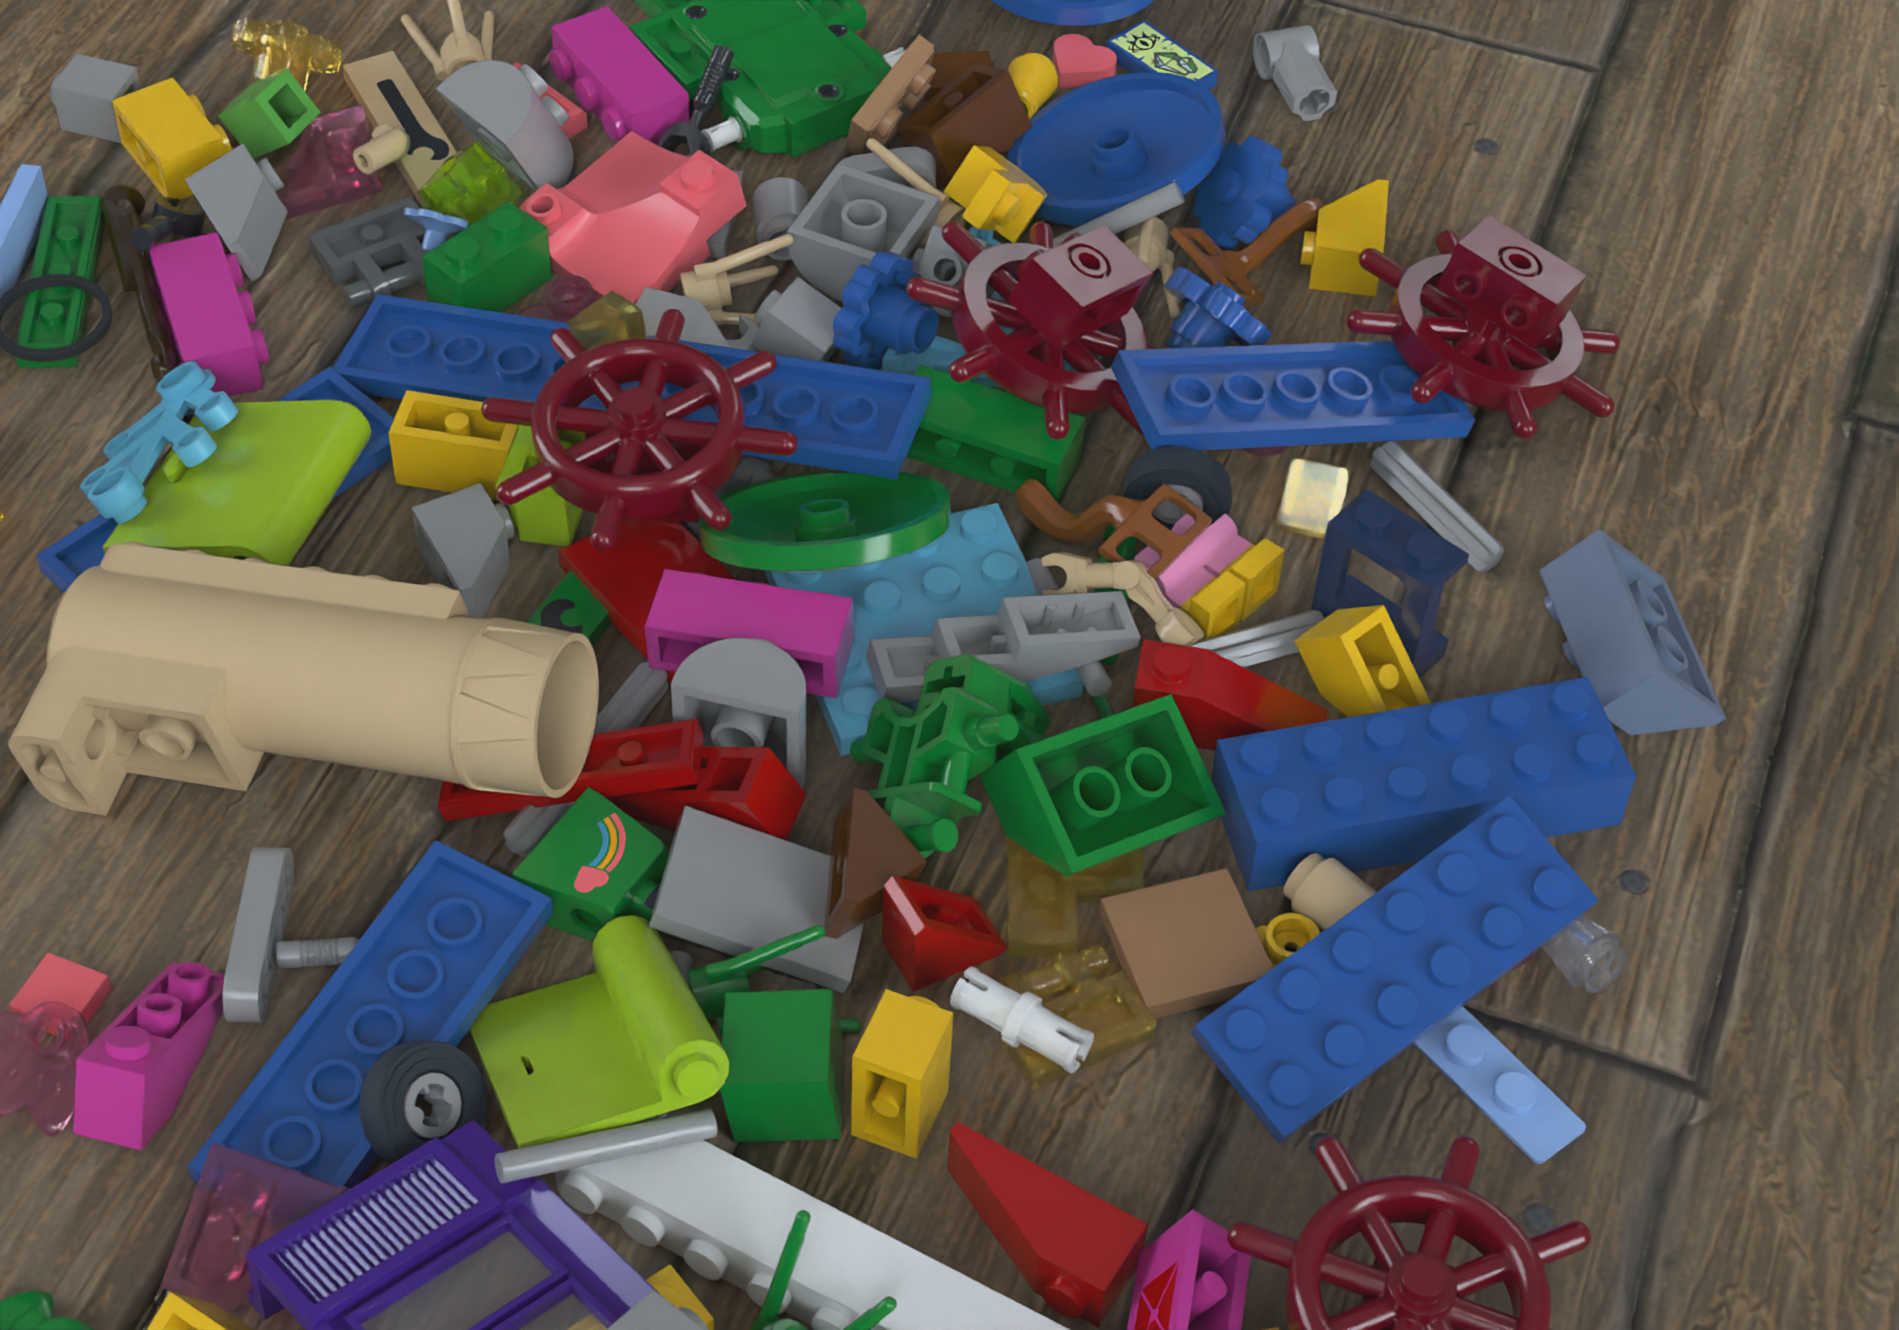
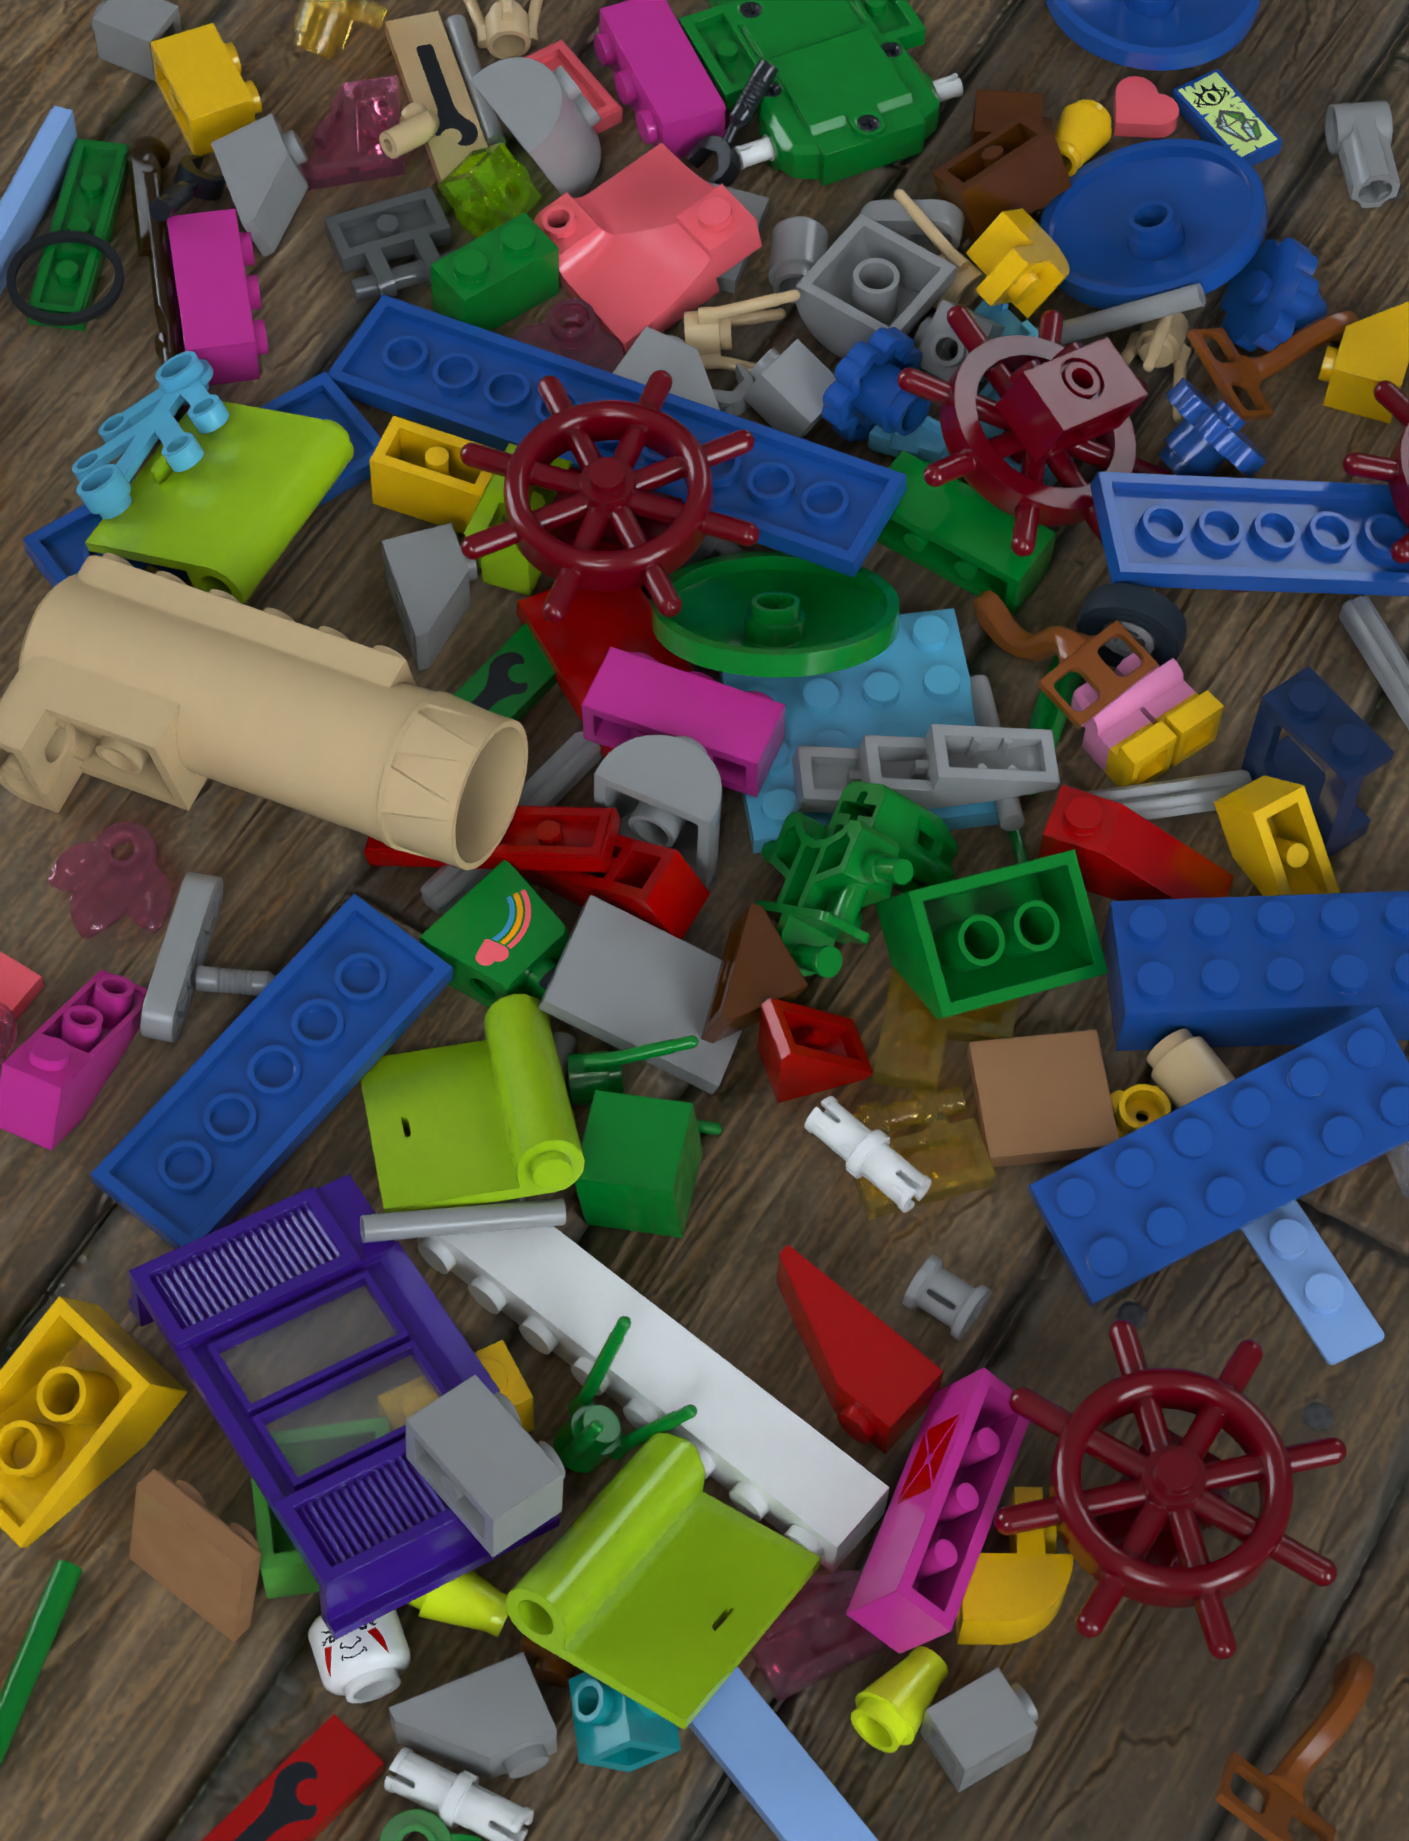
camera: 10 degrees right, 10 degrees up
(170, 877) = (110, 887): none -> clear pink plate
(231, 1211) = (124, 1228): clear pink wing -> none
(269, 113) = (303, 75): bright green brick -> none
(414, 1068) = (310, 1118): black bush -> none
(436, 226) = (449, 232): medium blue plant -> none
(440, 109) = (469, 66): none -> light grey bar
(608, 321) = (599, 375): clear yellow slope -> none
(901, 1072) = (745, 1188): yellow brick -> none
(902, 87) = (946, 130): medium nougat tile -> none
(1083, 576) = (1096, 772): tan piece -> none
(1107, 1156) = (946, 1297): none -> light grey bush
(1312, 497) = (1270, 647): clear yellow slope -> none

